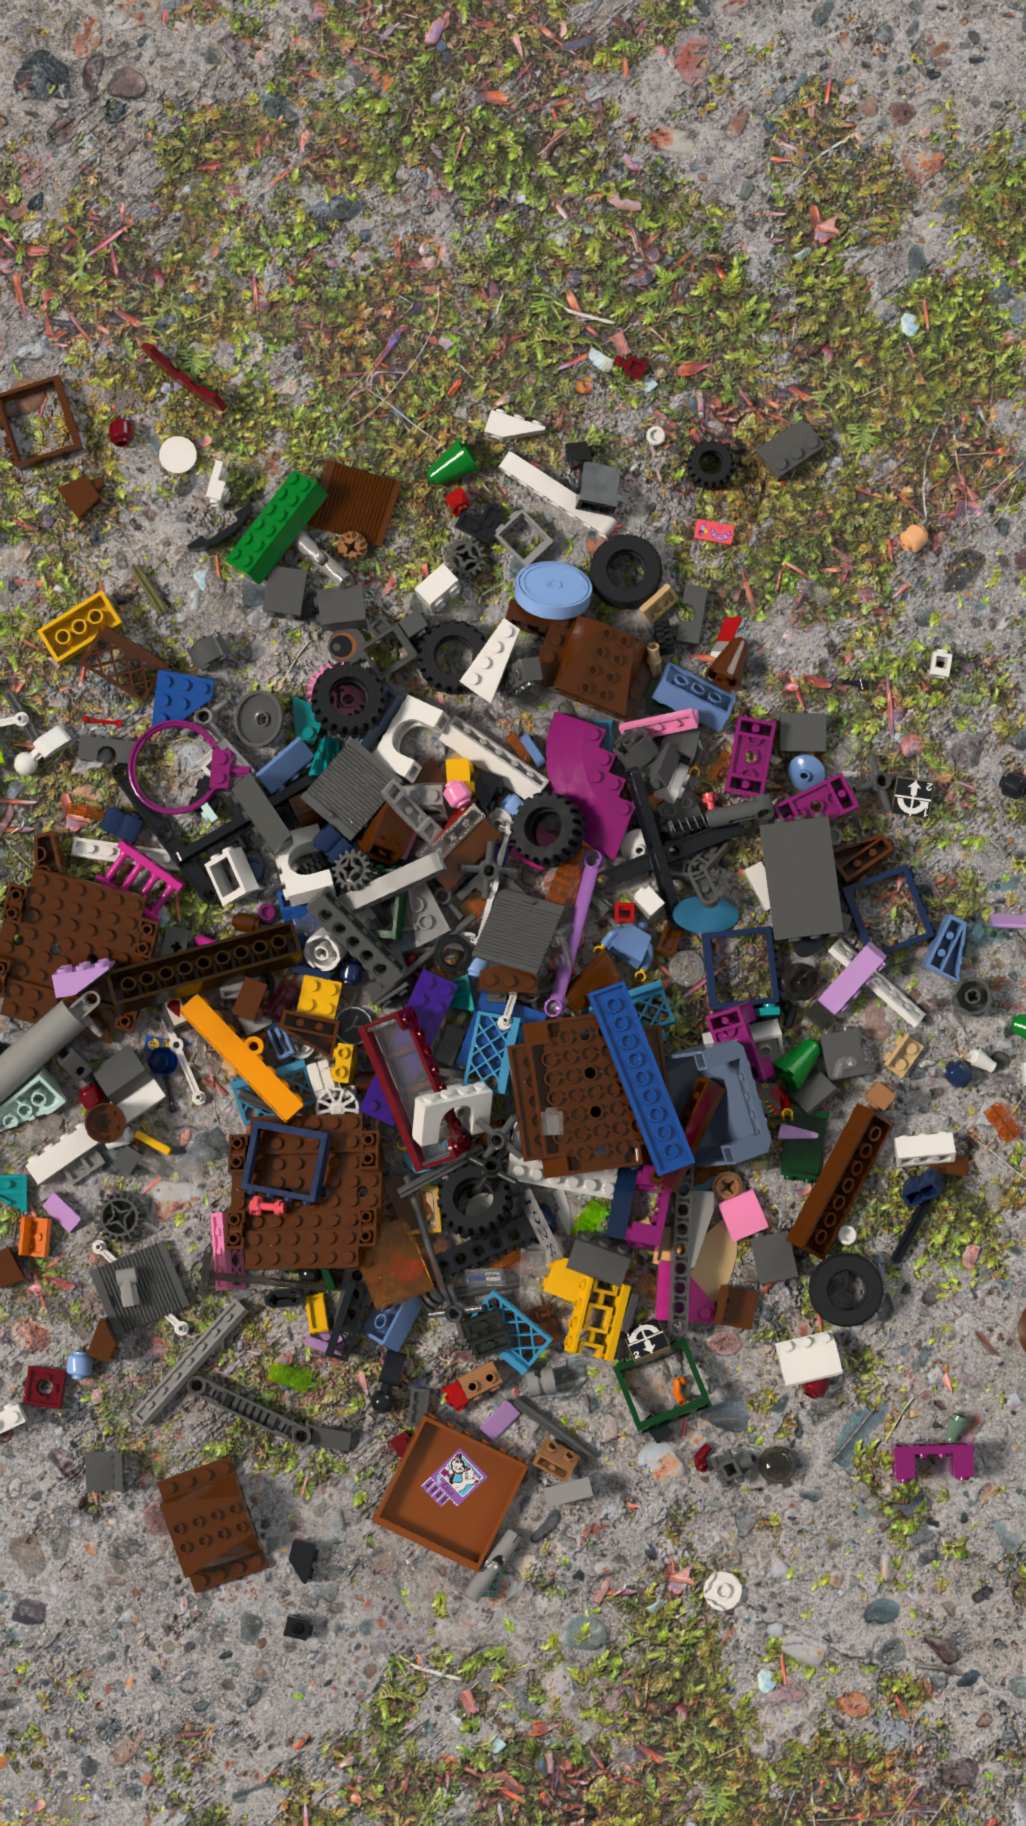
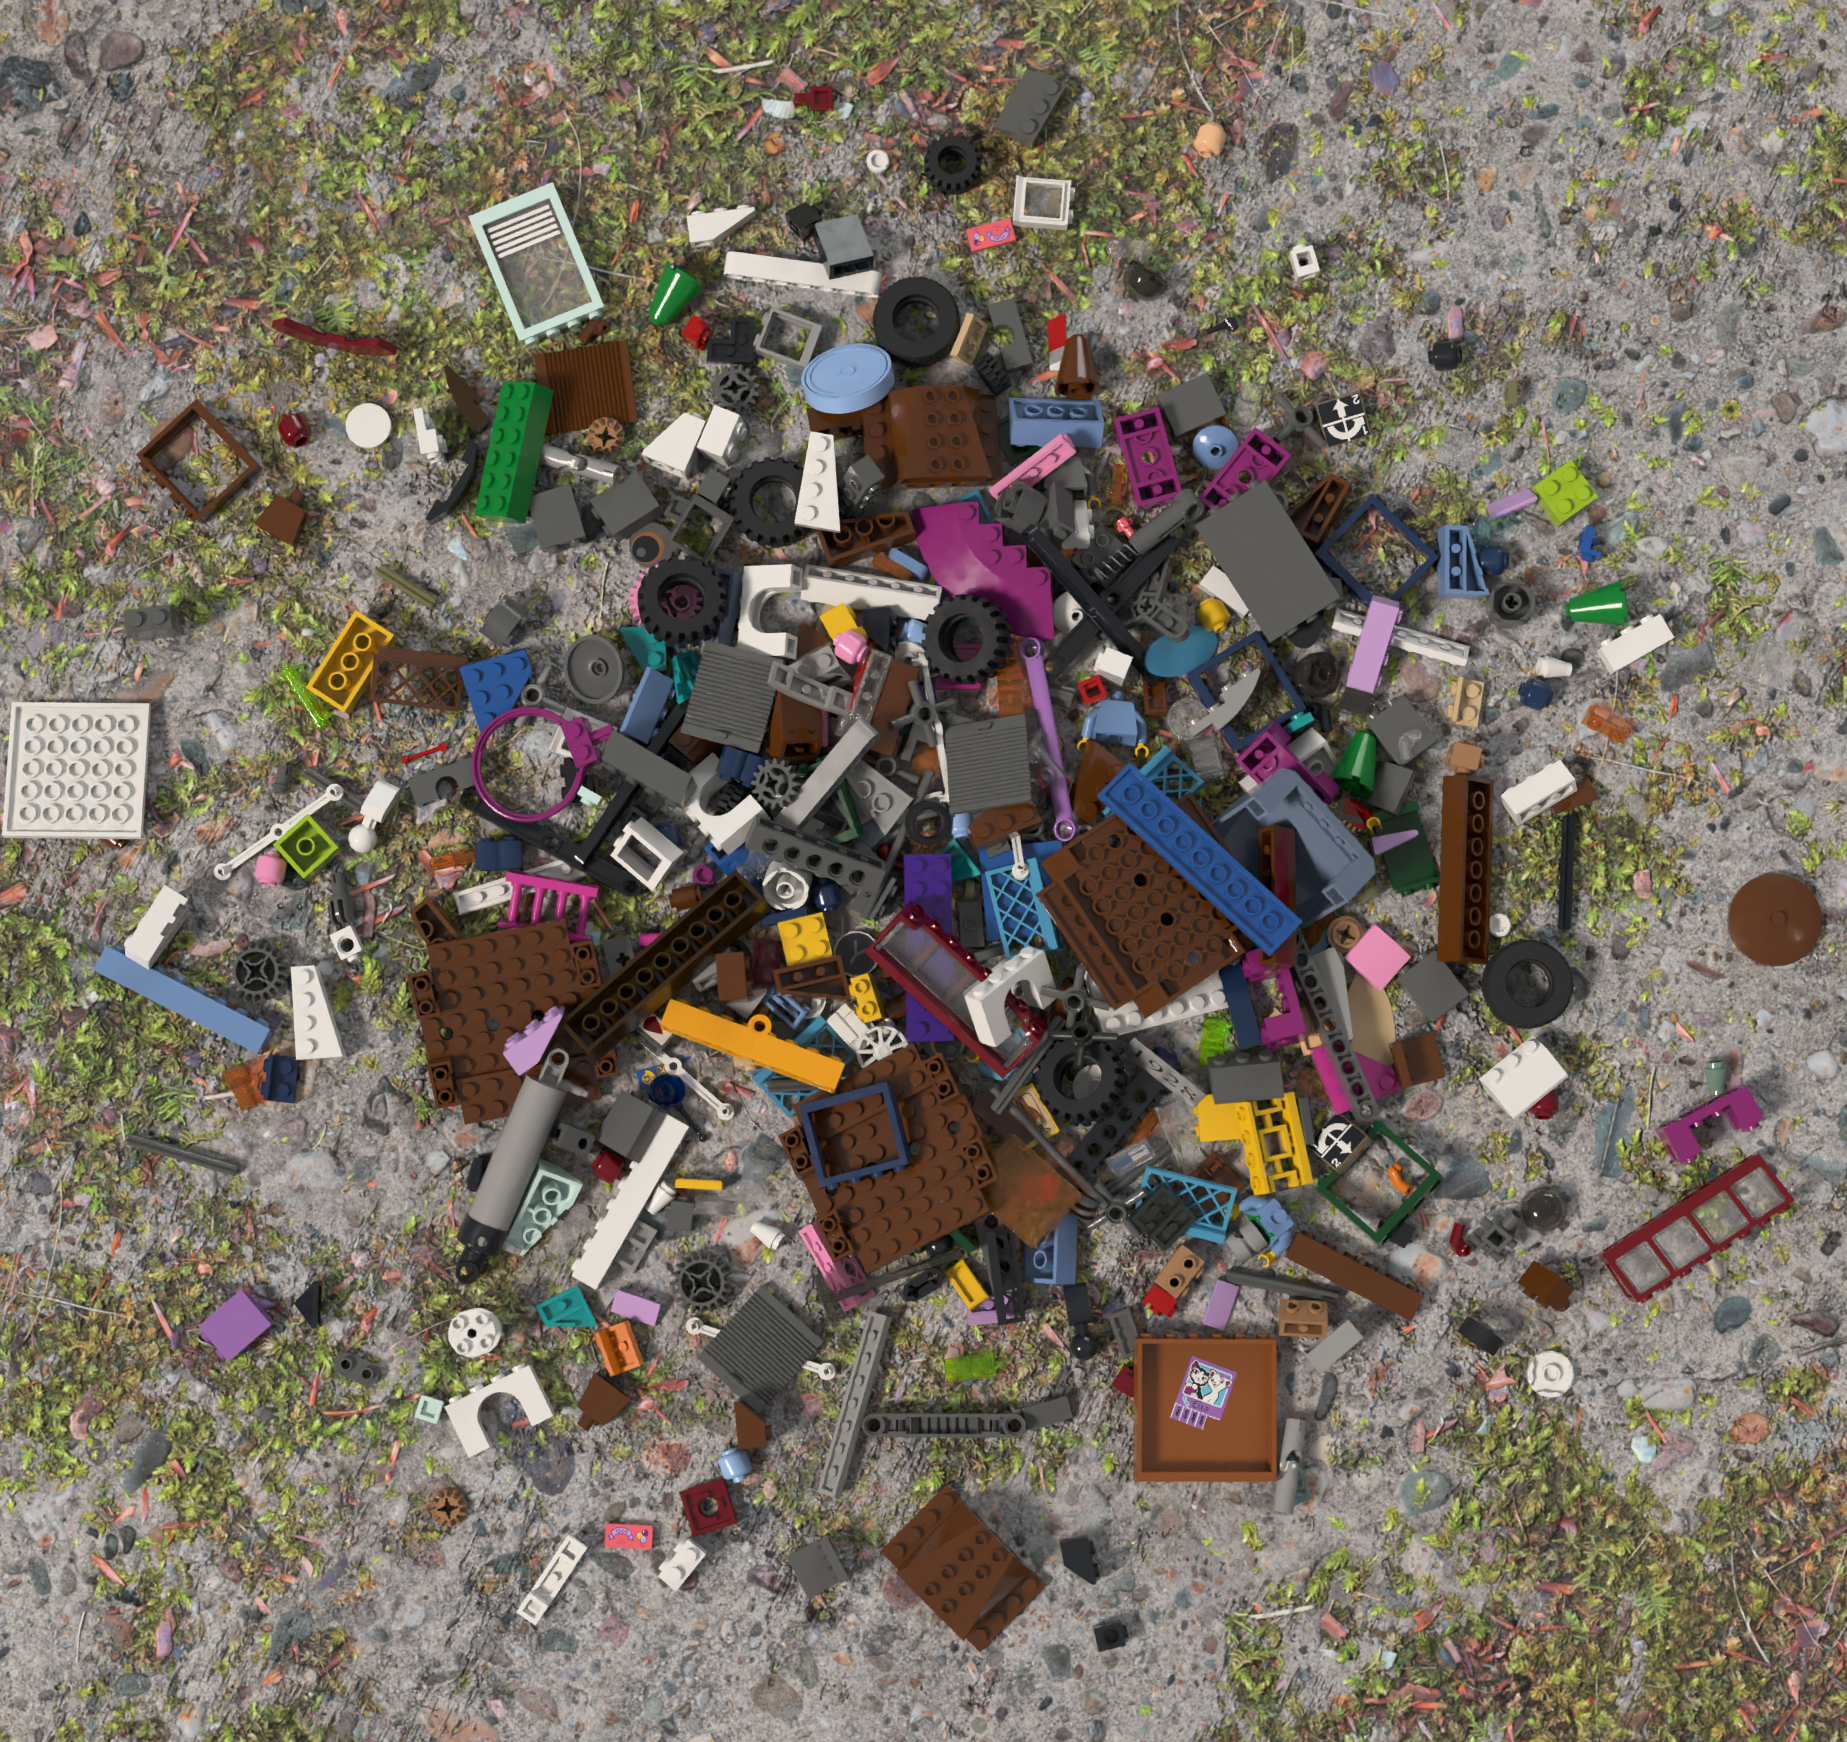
camera: 20 degrees left, 0 degrees up
(32, 636) = (300, 692): none -> clear neon green pin
(95, 1117) = (624, 1183): reddish brown wheel -> none
(128, 1281) = (744, 1349): light grey piece -> none
(187, 1206) = (769, 1235): none -> white cone
(258, 1204) = (846, 1196): coral bar -> none
(260, 471) = (467, 401): none -> dark brown slope
(362, 393) = (537, 264): none -> window
(381, 461) = (593, 328): none -> reddish brown arm
(400, 580) = (677, 446): none -> white slope
(509, 716) = (866, 537): none -> reddish brown wedge
(552, 1122) = (1125, 952): clear brick -> none
(564, 1212) = (1182, 1047): white sticker -> none
(566, 1375) = (1269, 1220): none -> medium blue torso
(609, 1446) = (1354, 1276): none -> reddish brown brick
(654, 659) = (992, 401): tan axle -> none
(683, 1537) = (1480, 1336): none -> black tyre
(687, 1005) = (1207, 758): none -> clear brick
(727, 970) = (1233, 700): none -> light grey slope
(743, 898) = (1213, 615): none -> yellow head
(749, 1524) = (1546, 1287): none -> reddish brown brick
(764, 526) = (1043, 203): none -> window
(811, 623) = (1143, 283): none -> clear smoke cylinder
(884, 1534) = (1696, 1228): none -> window
(922, 1187) = (1557, 834): dark blue brick -> none
(974, 957) = (1493, 560): none -> dark blue head

